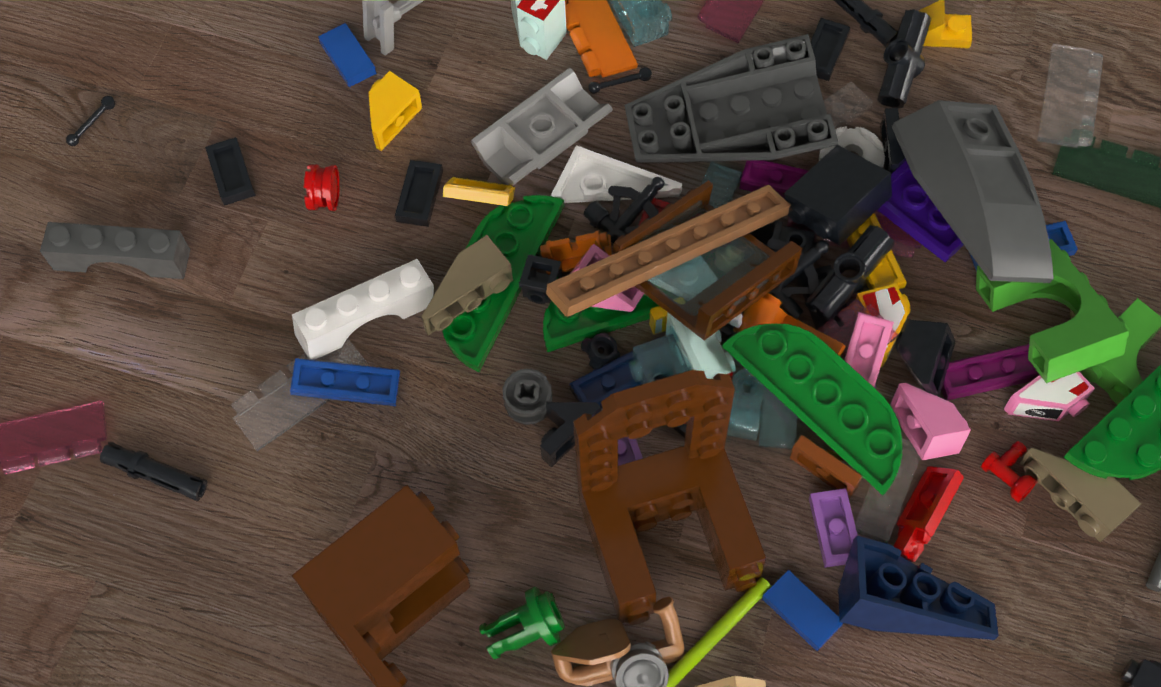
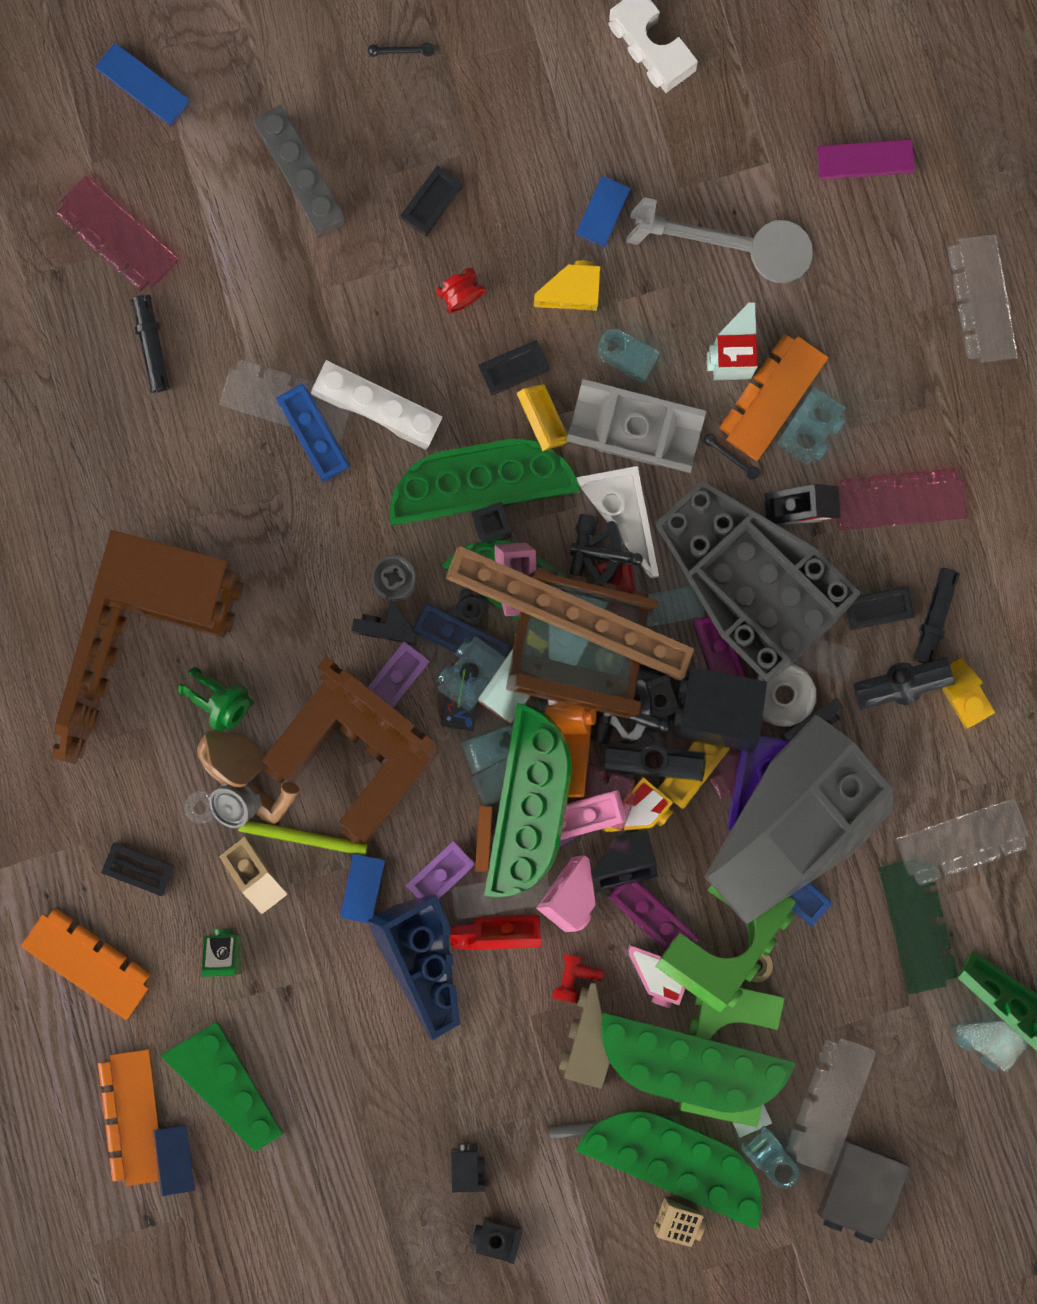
camera: 50 degrees right, 20 degrees up
(471, 278) = (453, 469): dark tan slope -> none
(479, 98) = (631, 356): none -> clear light blue piece
(571, 252) = (539, 534): orange hinge -> none
(699, 45) = (803, 504): none -> black slope

